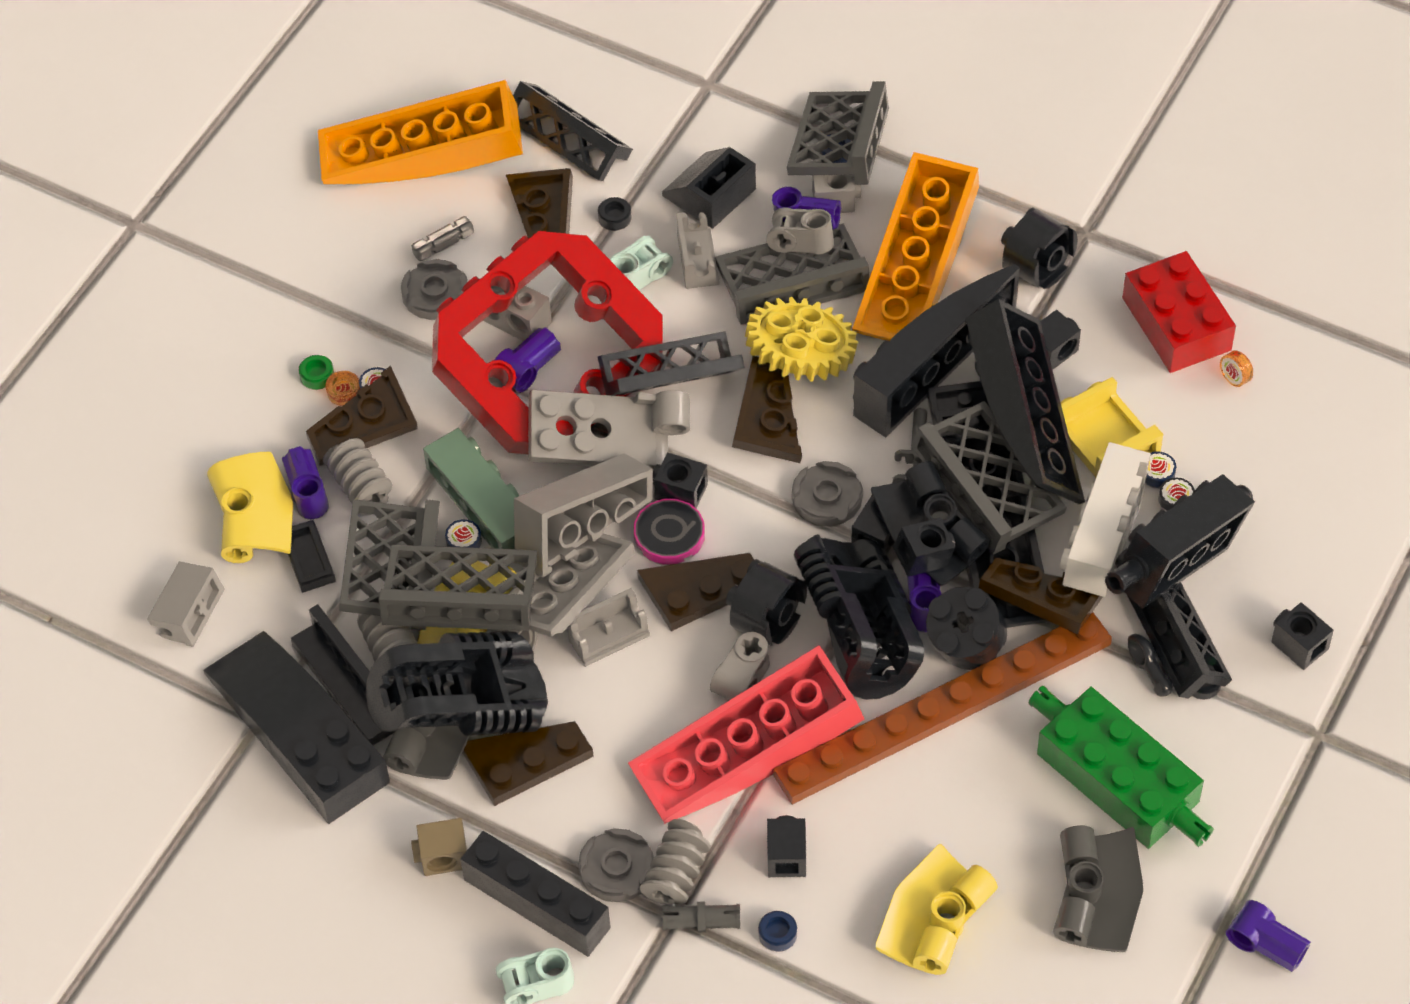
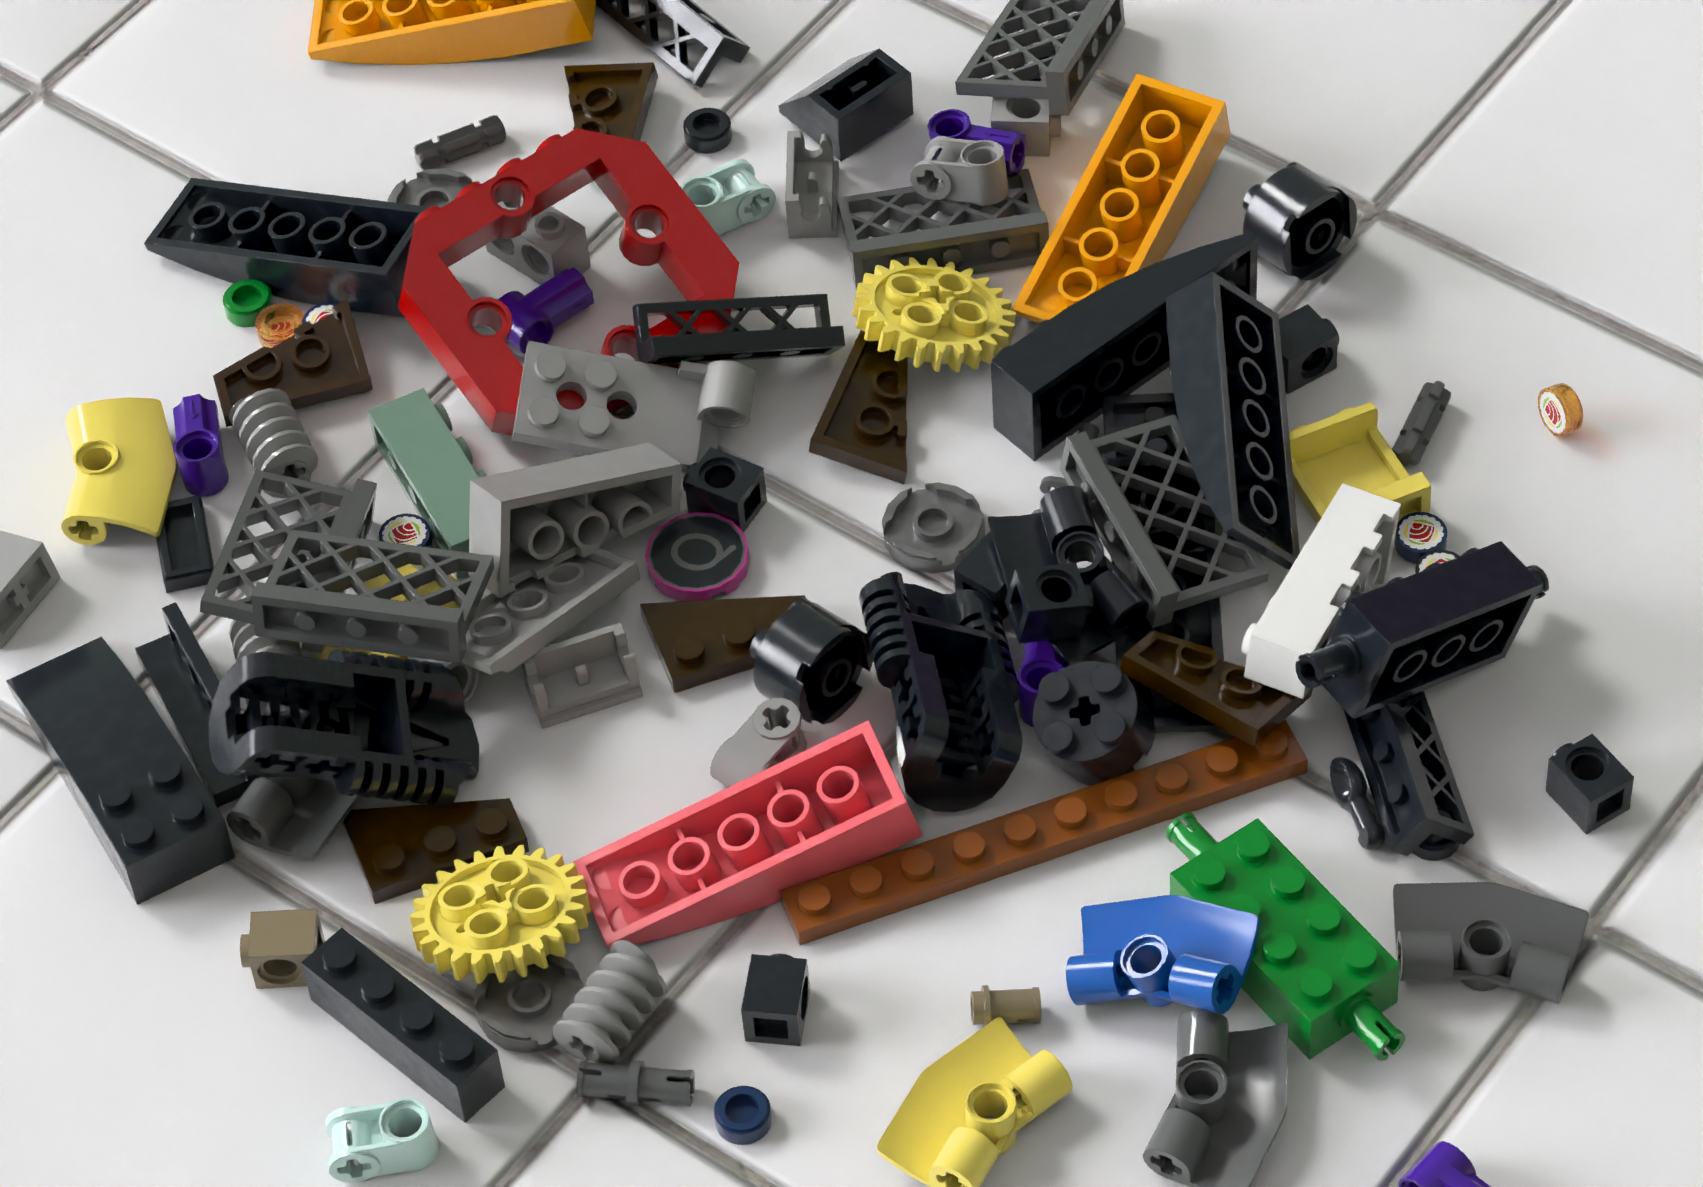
camera: 10 degrees right, 5 degrees down
(344, 325) = (293, 241): none -> black slope
(586, 806) = (500, 914): none -> light yellow gear
(946, 834) = (1010, 1005): none -> dark tan pin
(1068, 780) = (1163, 952): none -> blue panel
(1144, 386) = (1421, 423): none -> dark grey axle
(1178, 311) = (1488, 325): red brick -> none
(1227, 743) = (1449, 925): none -> dark grey panel

